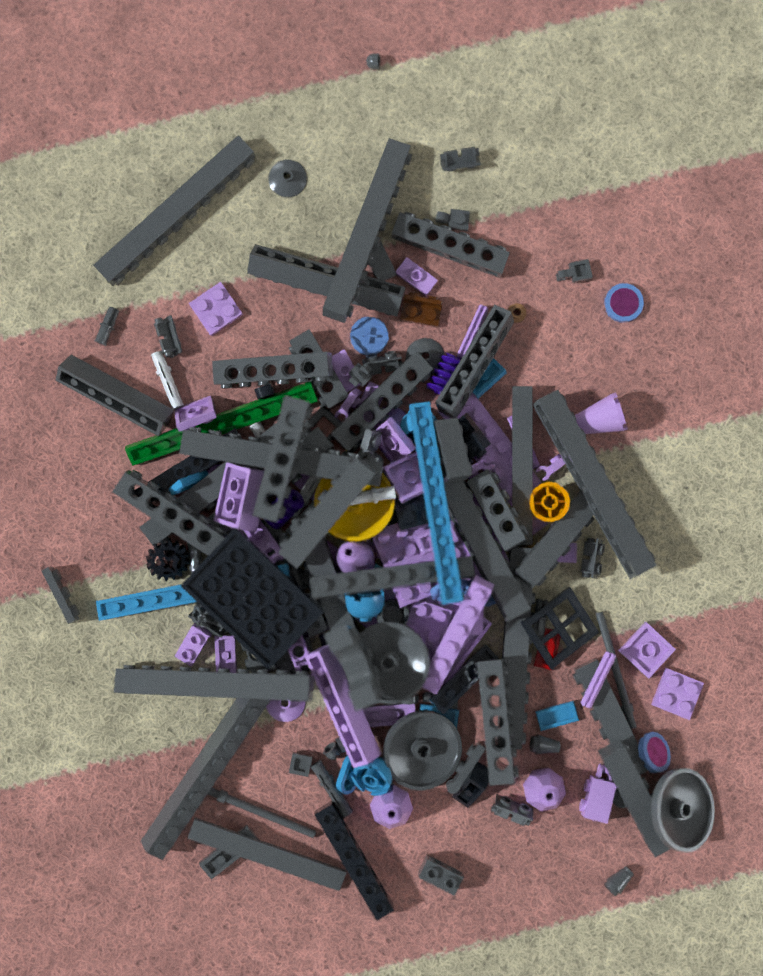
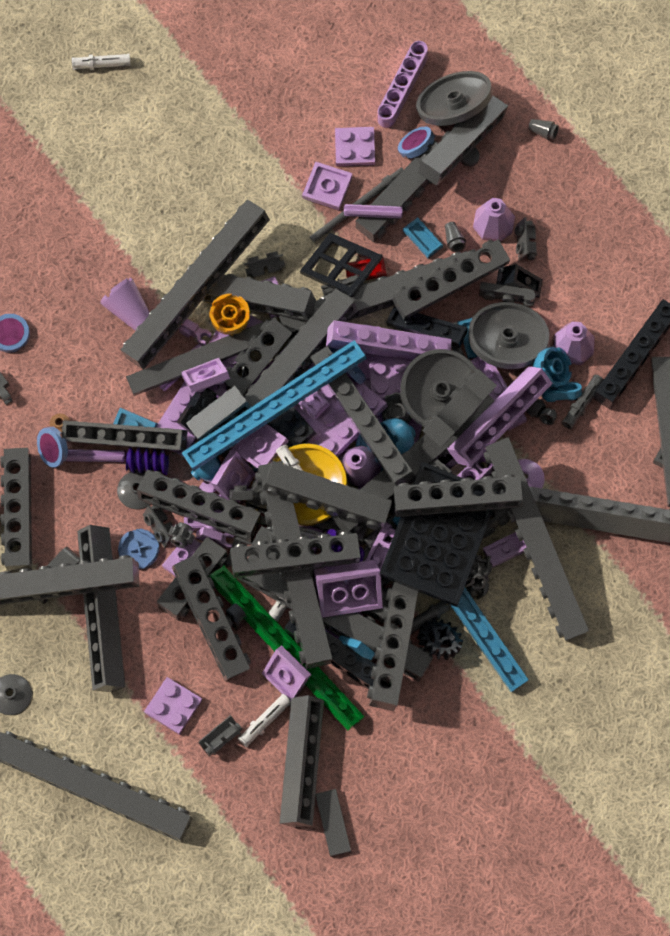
camera: 110 degrees left, 15 degrees down
(55, 400) = (333, 823): none -> dark grey tile
(61, 594) = (520, 727): dark grey plate -> none
(107, 326) = (235, 804): dark grey axle -> none
(193, 644) = (509, 582): lavender plate -> none
(223, 796) = (637, 494): dark grey bar -> none
(249, 677) = (449, 504): none -> dark grey brick
(300, 764) = (574, 438): dark grey plate -> none
(416, 276) = (61, 529): lavender plate -> none
(421, 310) = (93, 508): reddish brown bracket -> none
(440, 875) = (612, 275): dark grey brick -> none
(493, 294) = (52, 447): none -> tile
(498, 455) = (205, 375): none -> lavender plate
(598, 796) = (476, 173): lavender brick -> none
(730, 772) = (402, 76): none -> lavender beam

